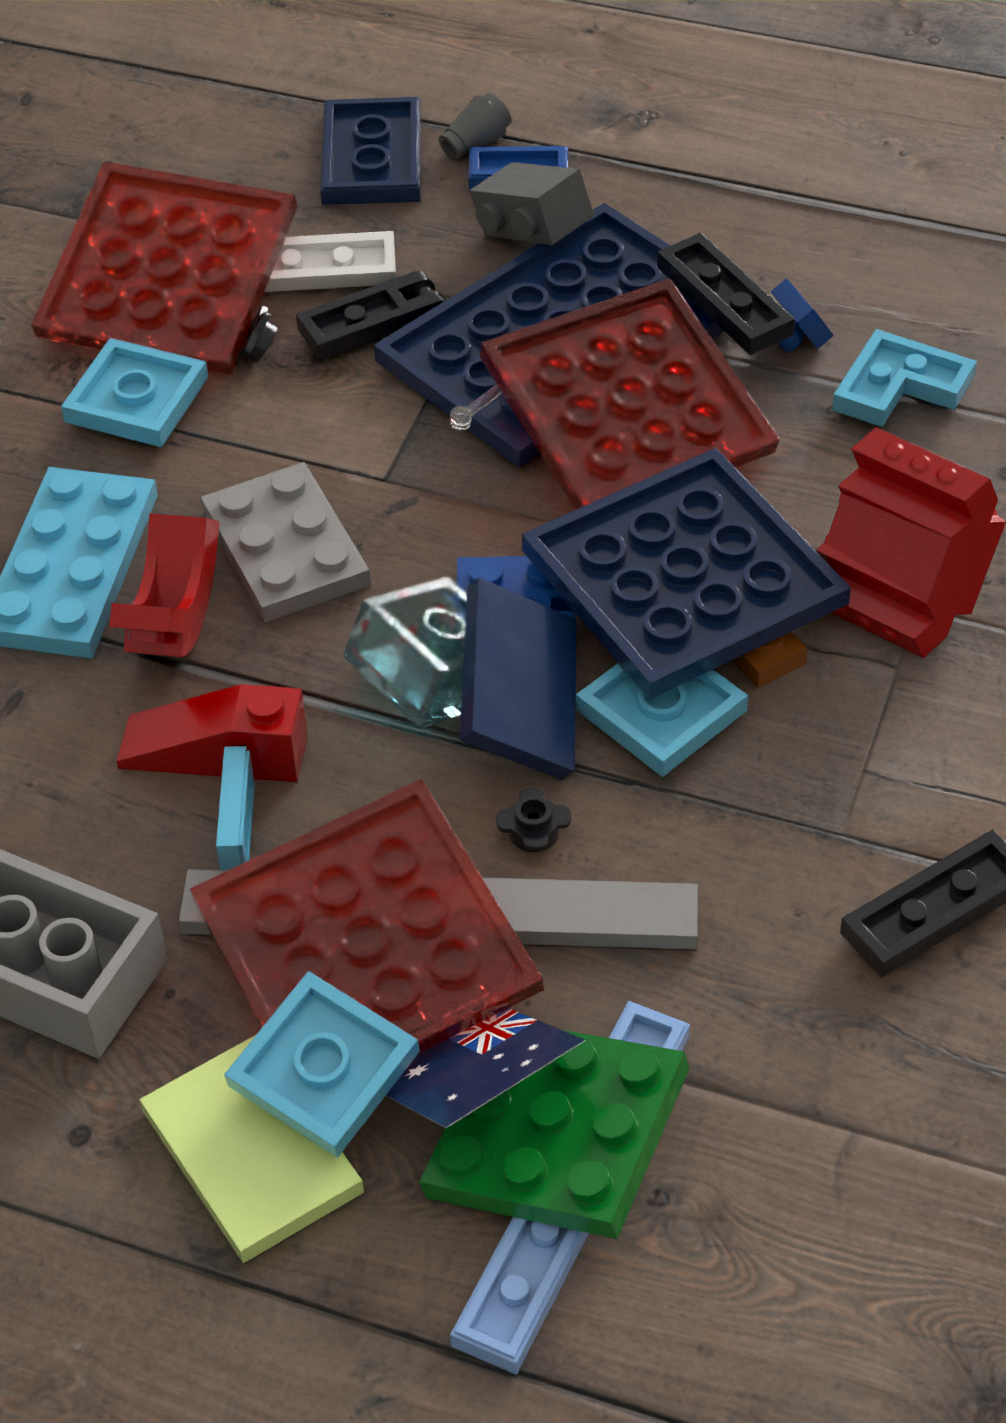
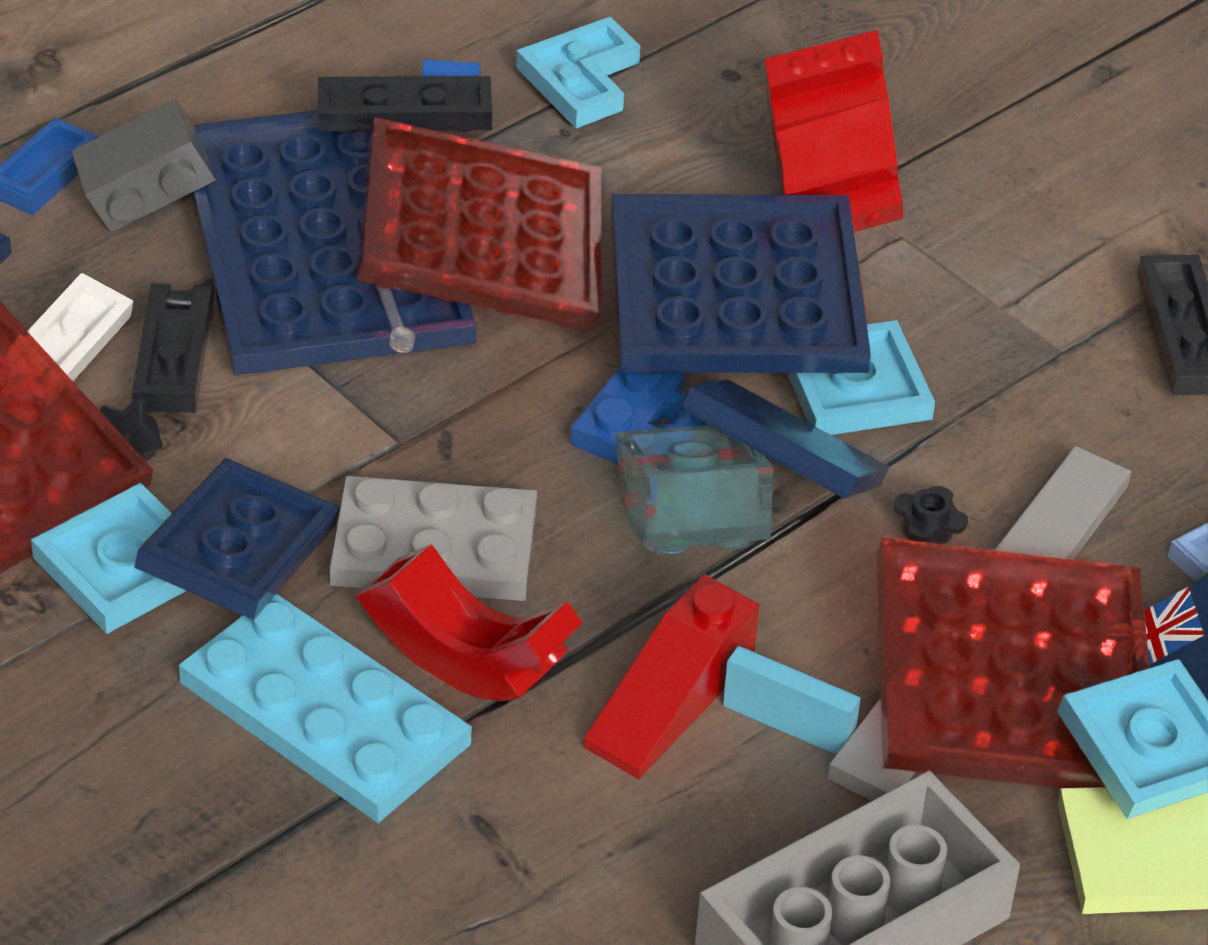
camera: 65 degrees left, 5 degrees down
(182, 432) = (237, 538): none -> dark blue tile

